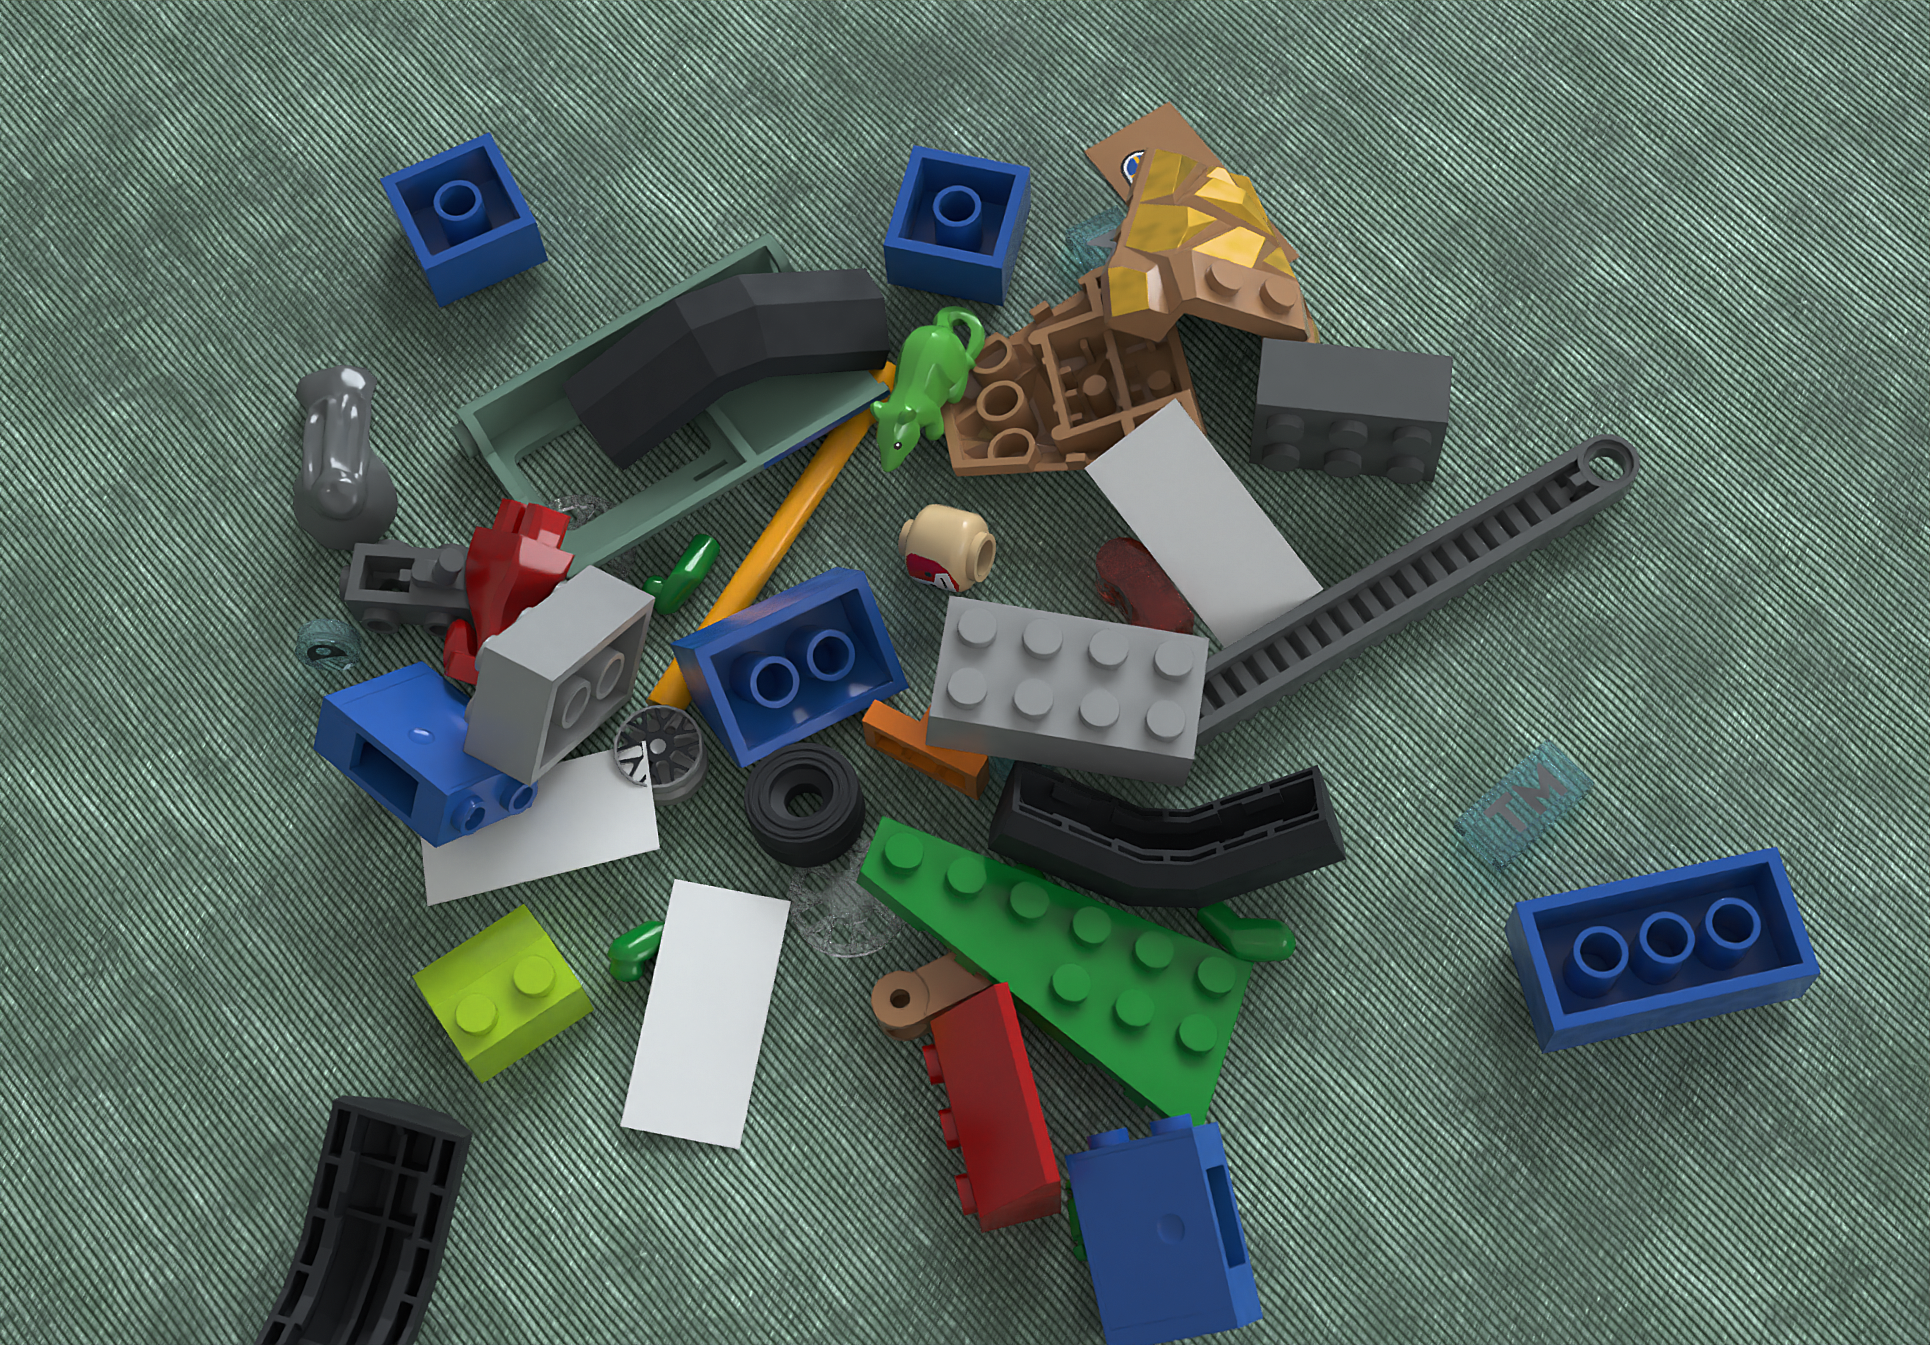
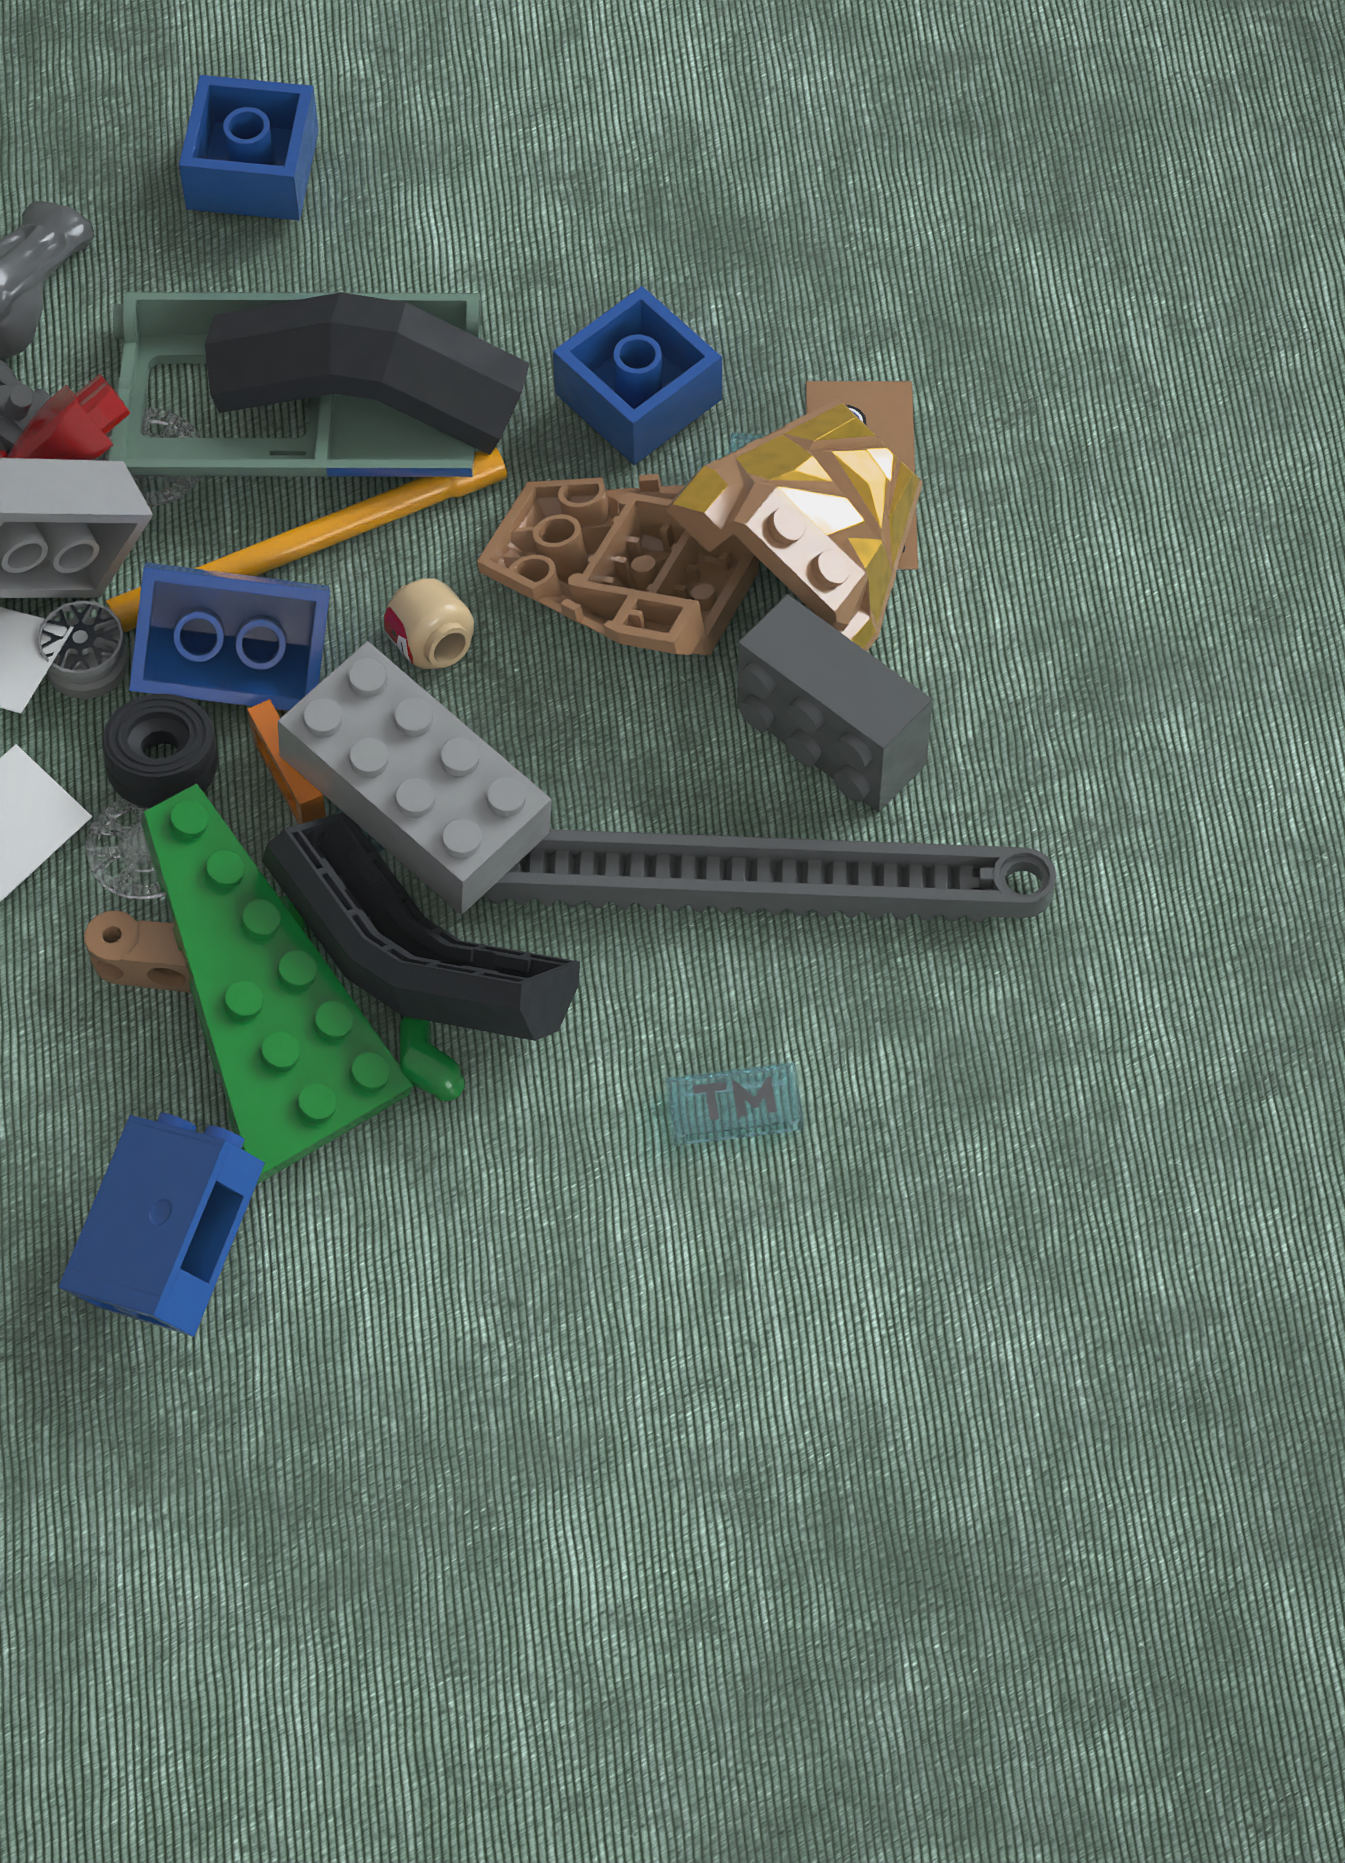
camera: 30 degrees right, 5 degrees down
(685, 576) = (193, 531): green arm -> none
(927, 374) = (513, 472): bright green animal -> none
(993, 1112) = (119, 1060): red slope -> none
(1139, 588) = (556, 750): clear red leg -> none
(1202, 525) = (633, 718): white sticker -> none
(1660, 949) = (737, 1270): blue brick -> none

